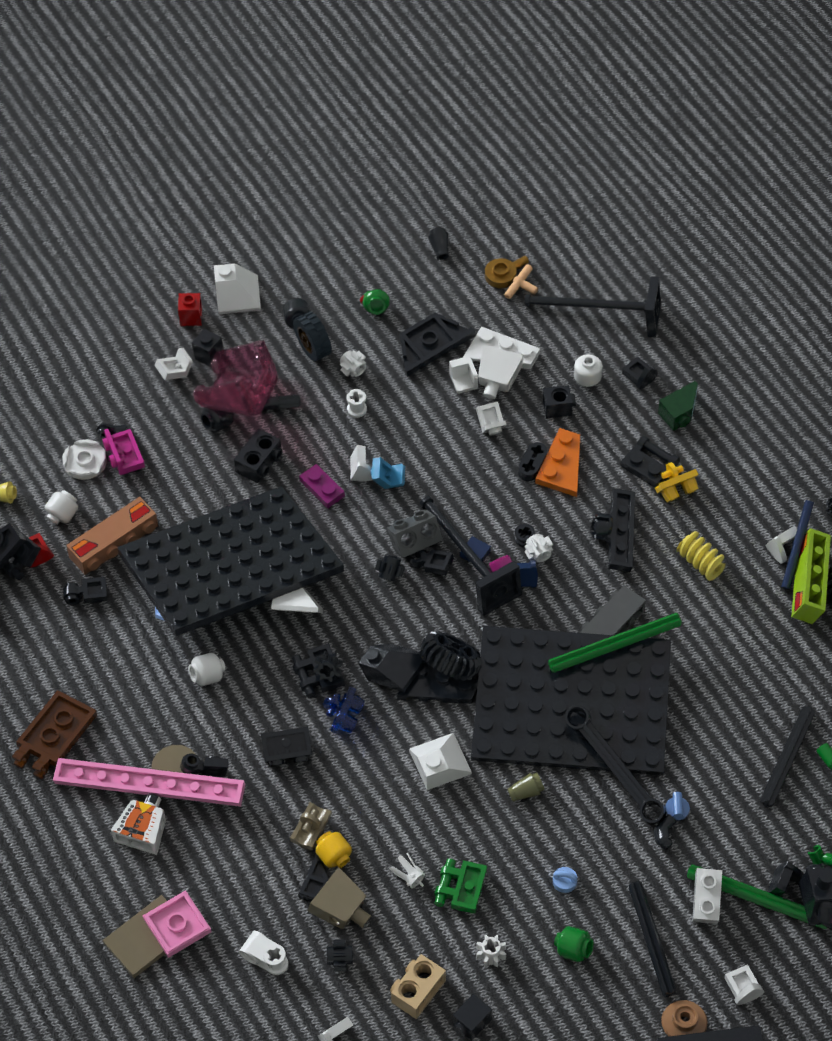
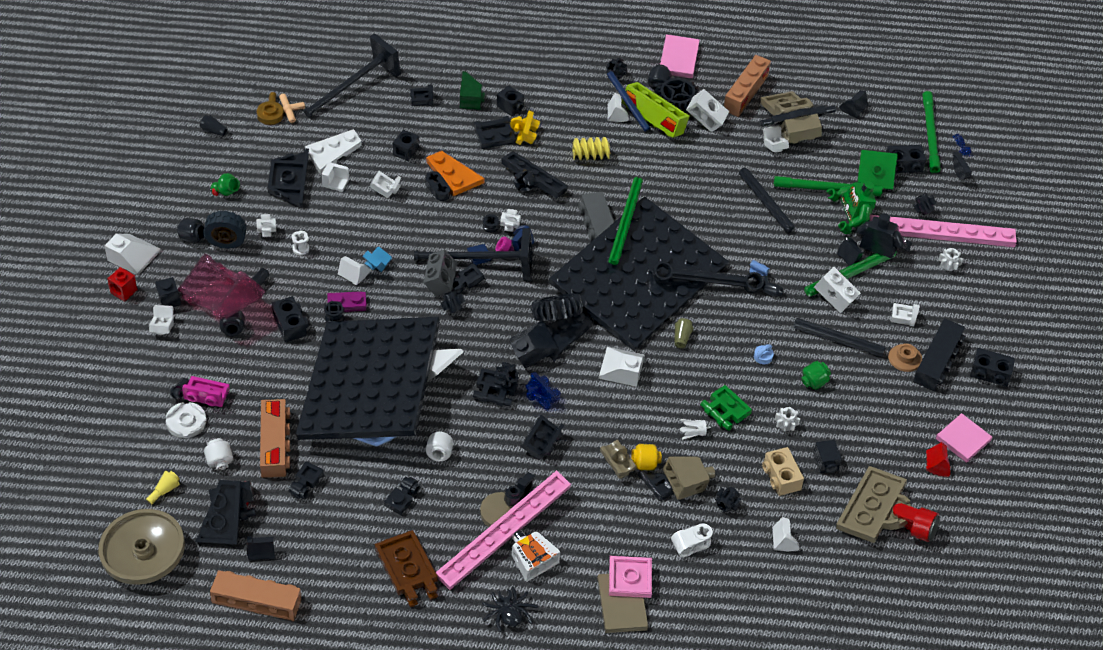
camera: 60 degrees left, 5 degrees down
(66, 844) = (509, 608): none -> black animal
(124, 677) = (400, 499): none -> black plate
(294, 484) = (333, 311): none -> black wheel
(498, 370) = (353, 155): white torso -> none
(588, 370) = (398, 115): white head -> none
(702, 439) = (510, 100): none -> black brick

